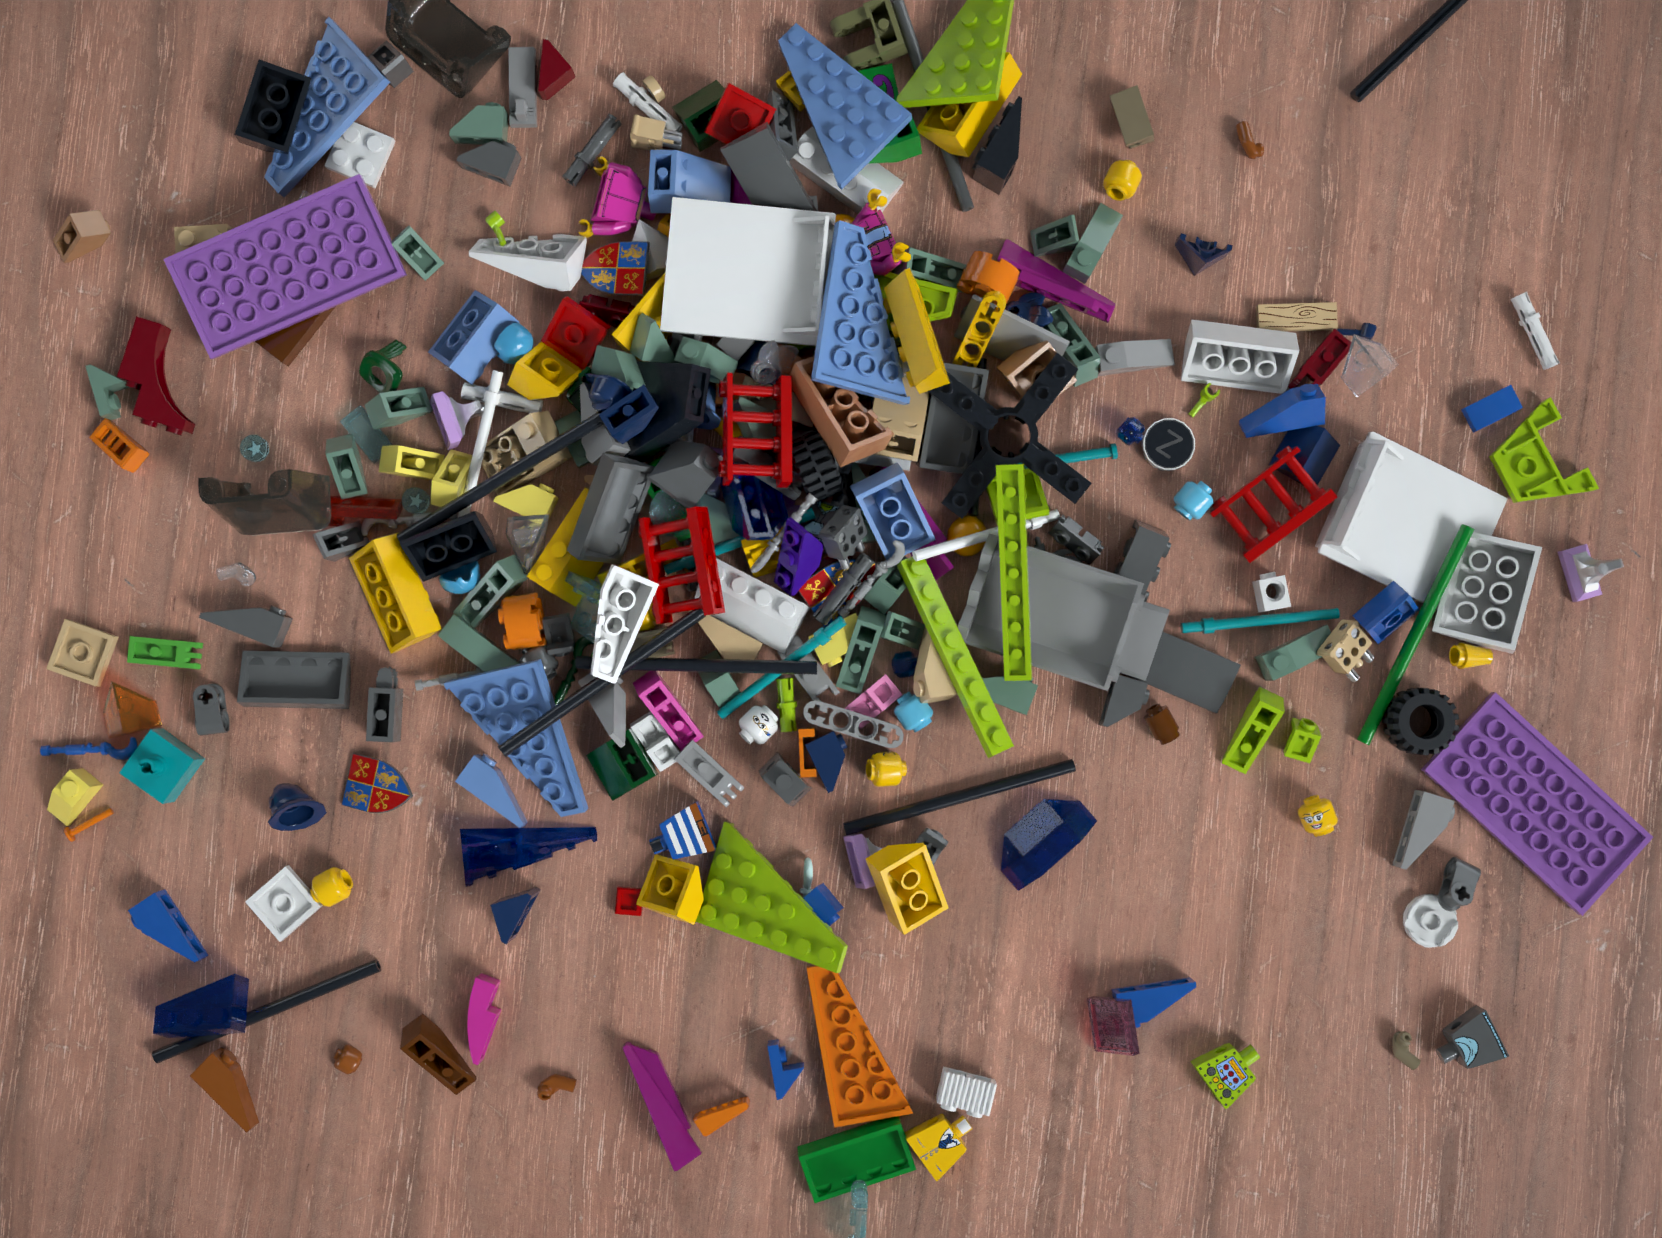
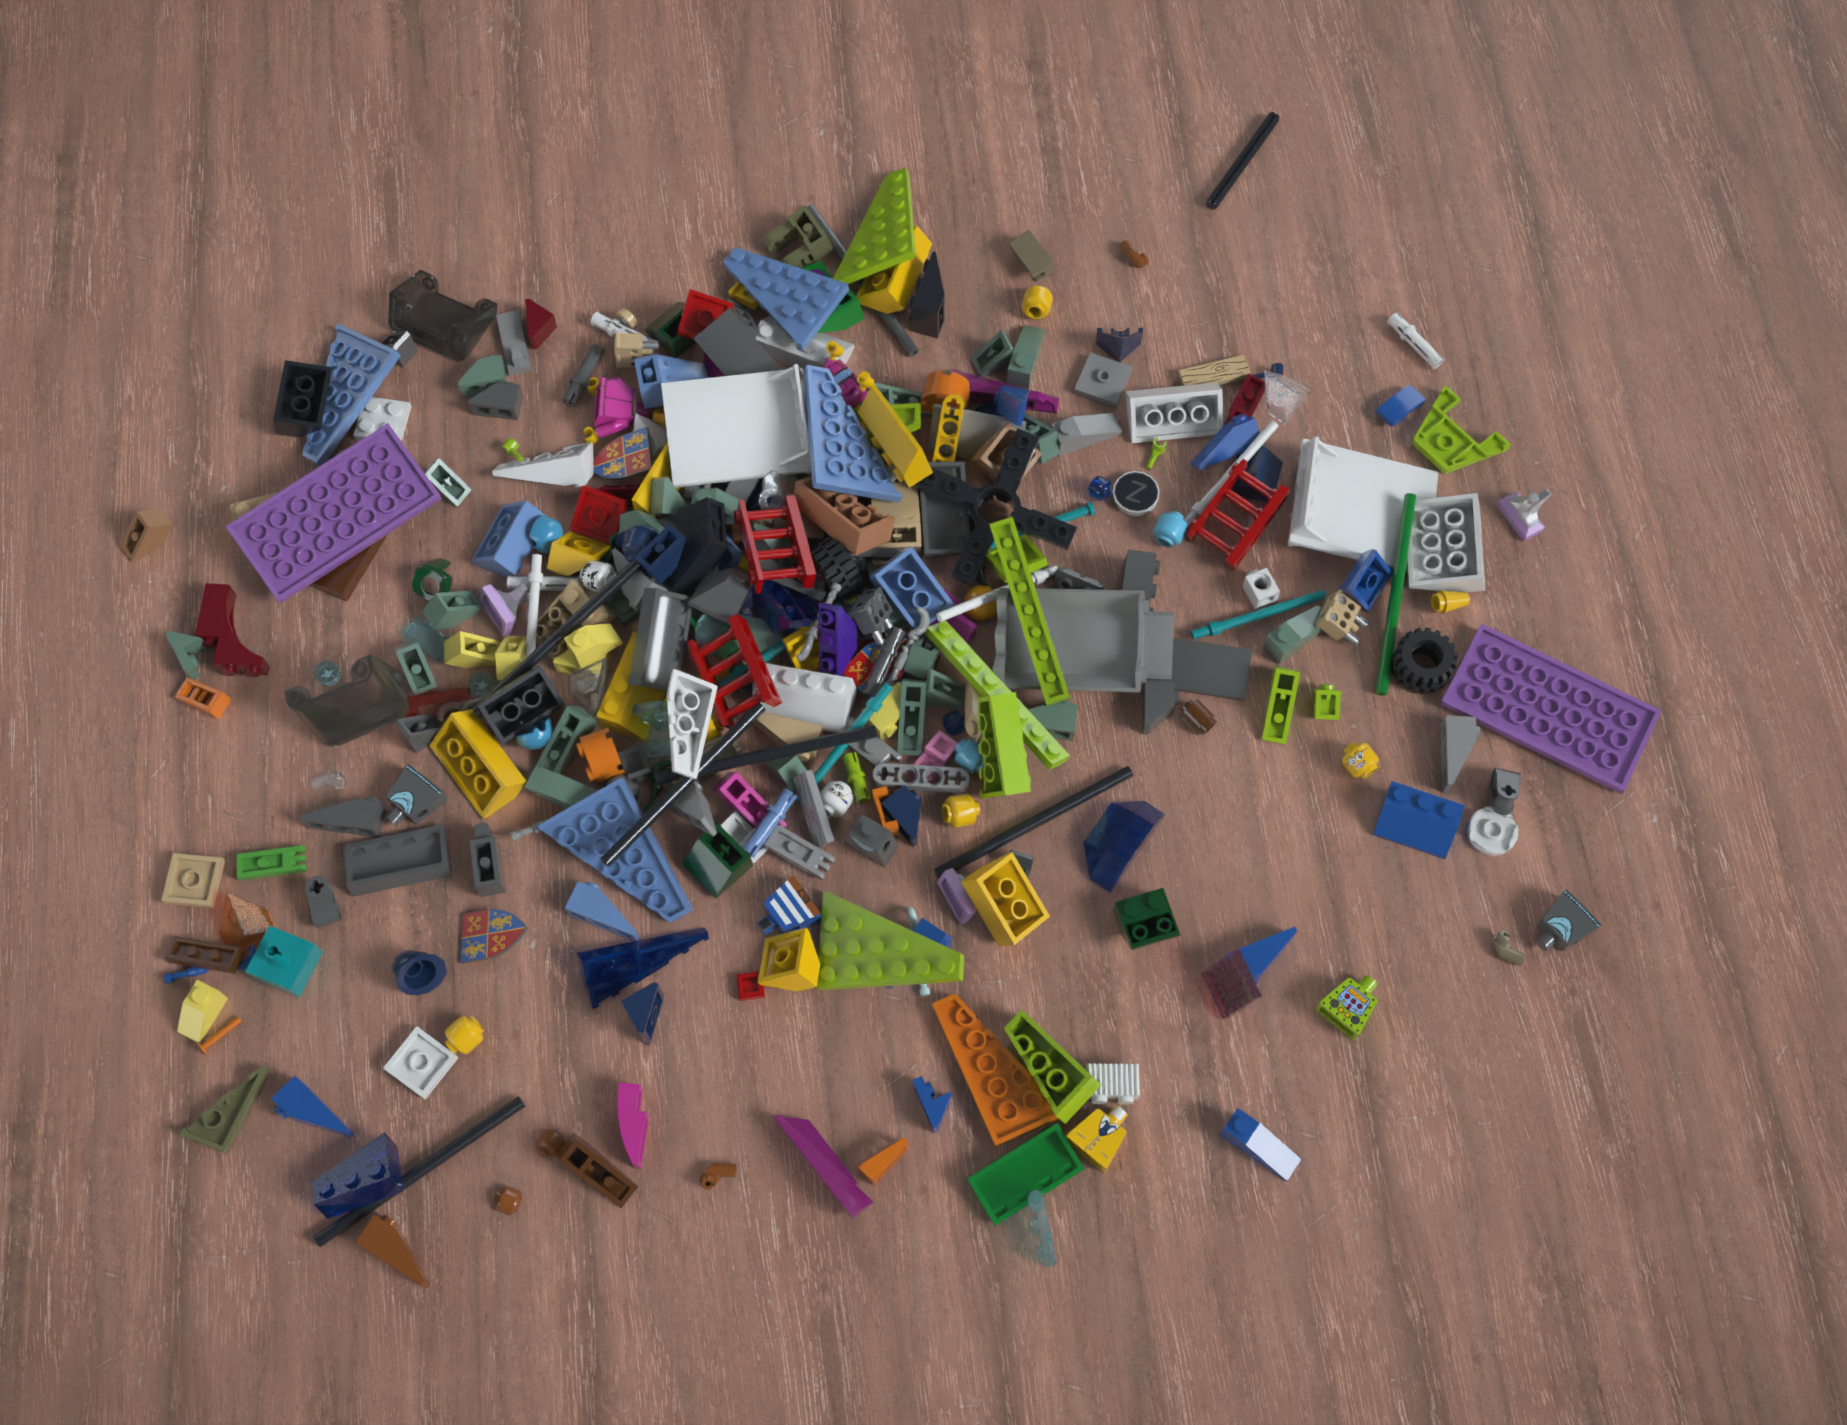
camera: 10 degrees left, 20 degrees down
(78, 917) = (223, 1121): none -> olive wing
(83, 738) = (205, 955): none -> reddish brown tile
(321, 615) = (413, 797): none -> dark grey torso
(399, 1012) = (549, 1143): none -> dark orange piece
(538, 492) = (592, 642): none -> light yellow slope
(559, 413) = (596, 575): none -> white head
(687, 734) = (775, 813): none -> medium blue pin
(733, 733) = (813, 809): none -> light grey tile
(909, 1068) = (1056, 1072): none -> lime wedge
(944, 724) = (1002, 747): none -> lime wedge
(1045, 936) = (1145, 919): none -> dark green slope
(1060, 315) = (1012, 403): none -> blue slope
(1093, 1186) = (1260, 1144): none -> slope
(1170, 294) = (1103, 380): none -> light grey plate
(1232, 481) = (1198, 508): none -> white bar
(1357, 894) = (1418, 819): none -> blue slope

